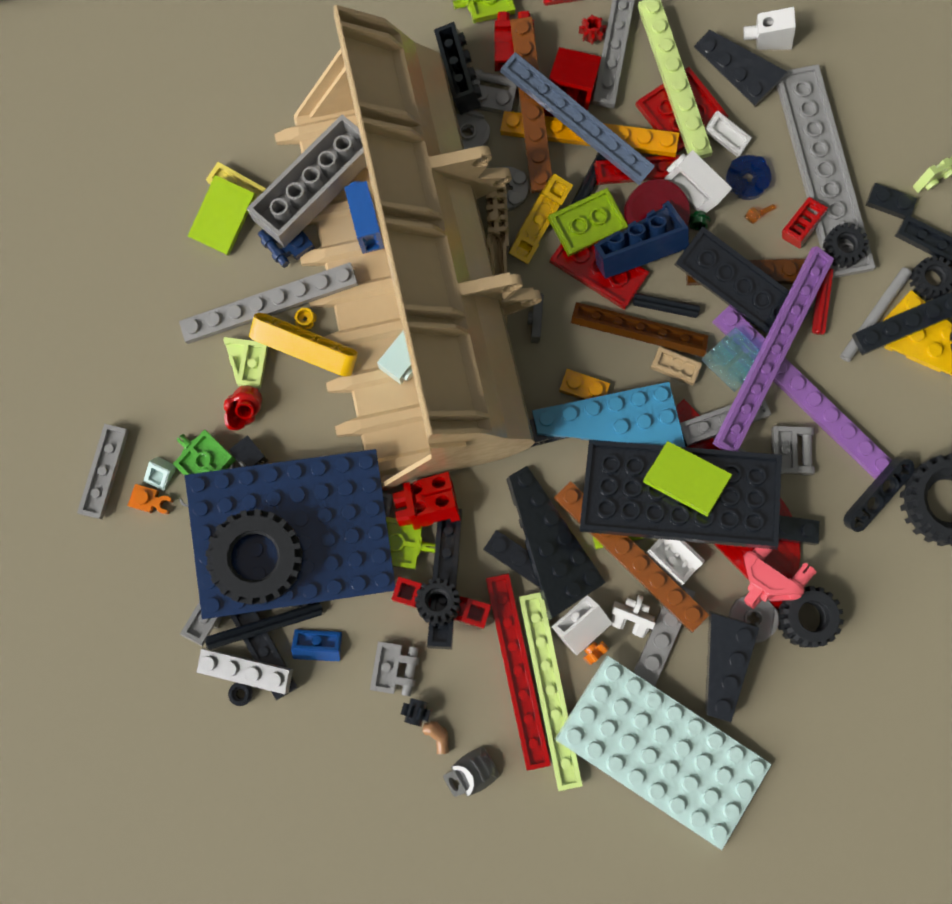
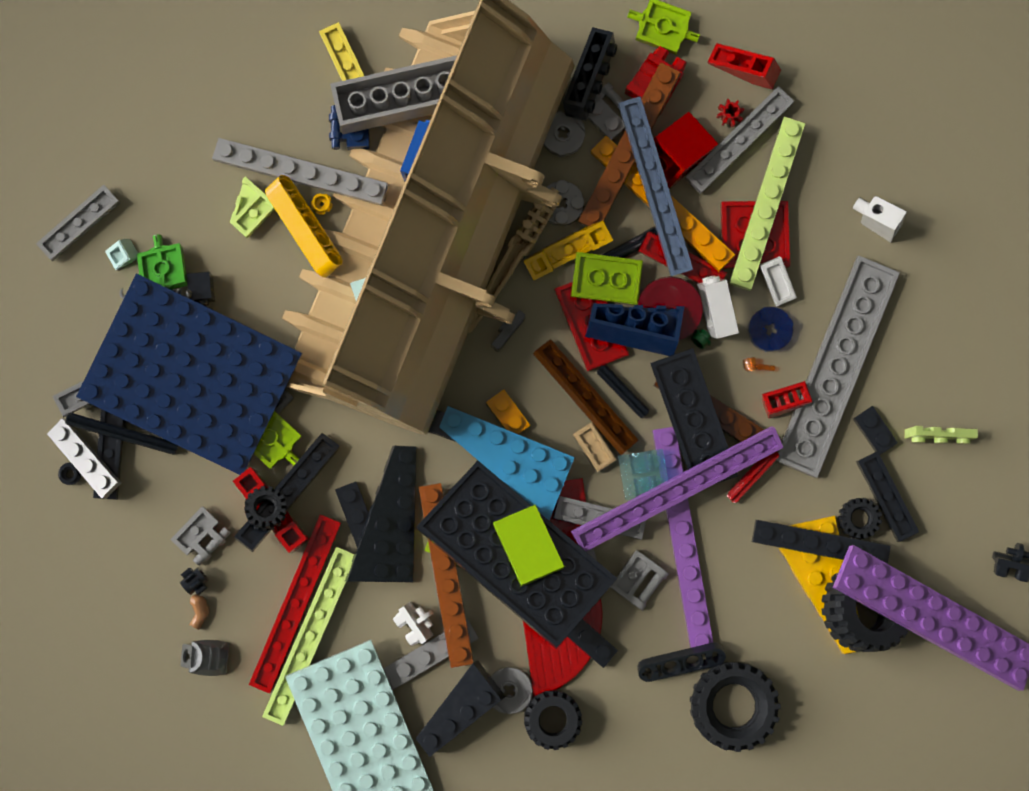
camera: 25 degrees right, 5 degrees up
(146, 499) = (98, 268): orange plate -> none
(220, 561) = (177, 384): black tyre -> none
(221, 215) = (311, 71): lime tile -> none
(242, 407) = (220, 245): red head -> none
(316, 645) = (154, 476): blue slope -> none
(427, 501) = (315, 422): red hips -> none
(582, 625) = (369, 602): white brick -> none
(595, 651) = (365, 630): orange plate -> none
(675, 559) = (479, 603): white bracket -> none
(743, 69) = (832, 233): black wing -> none
(770, 584) = (536, 670): coral connector -> none
(854, 237) = (816, 438): black tyre -> none
(878, 310) = (797, 513): light grey piece -> none

